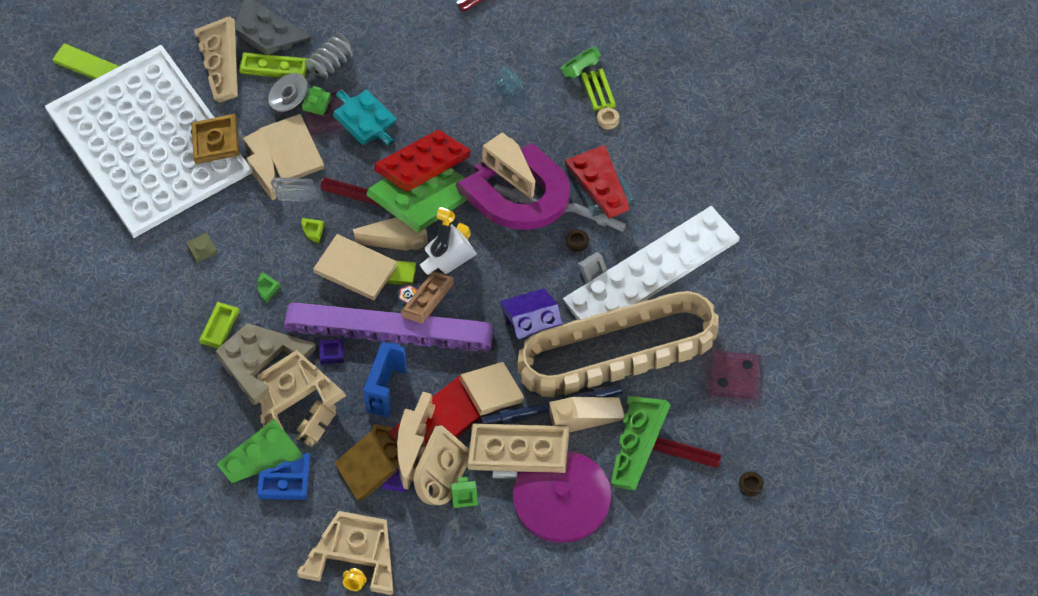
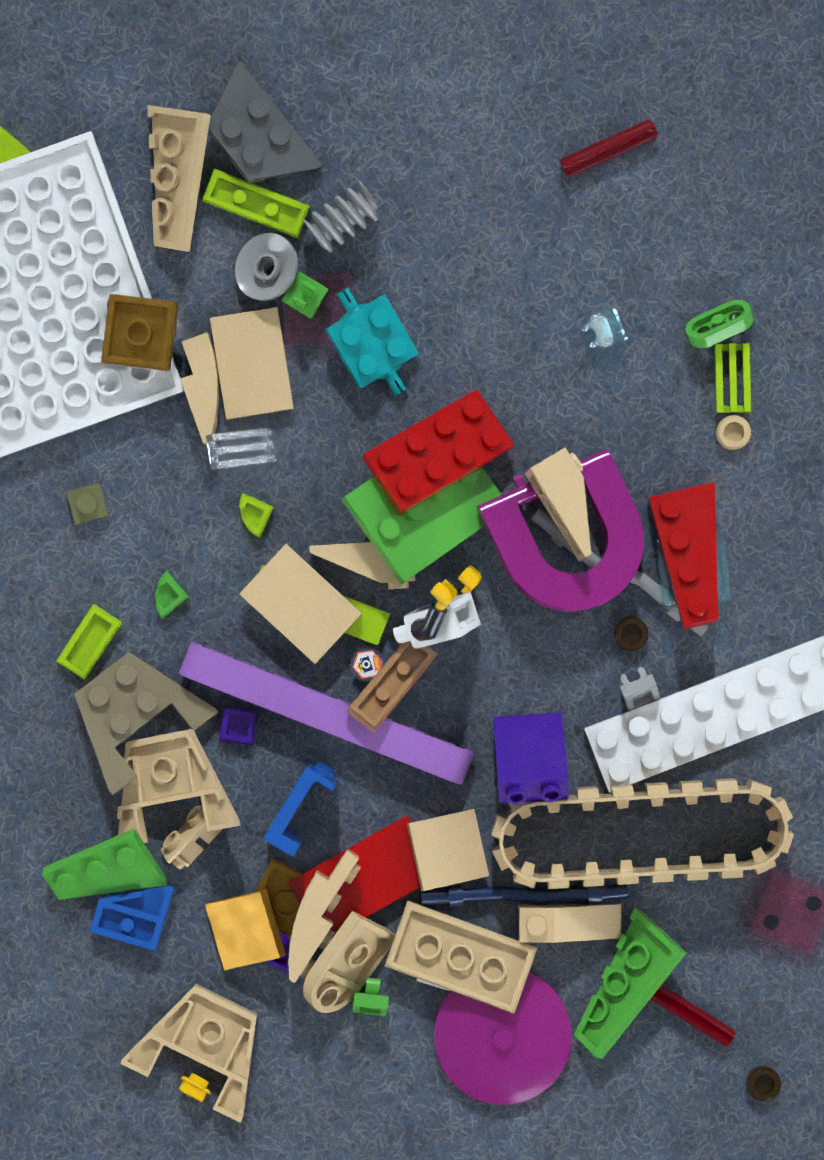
camera: 20 degrees right, 30 degrees up
(346, 190) = (321, 461): dark red axle -> none

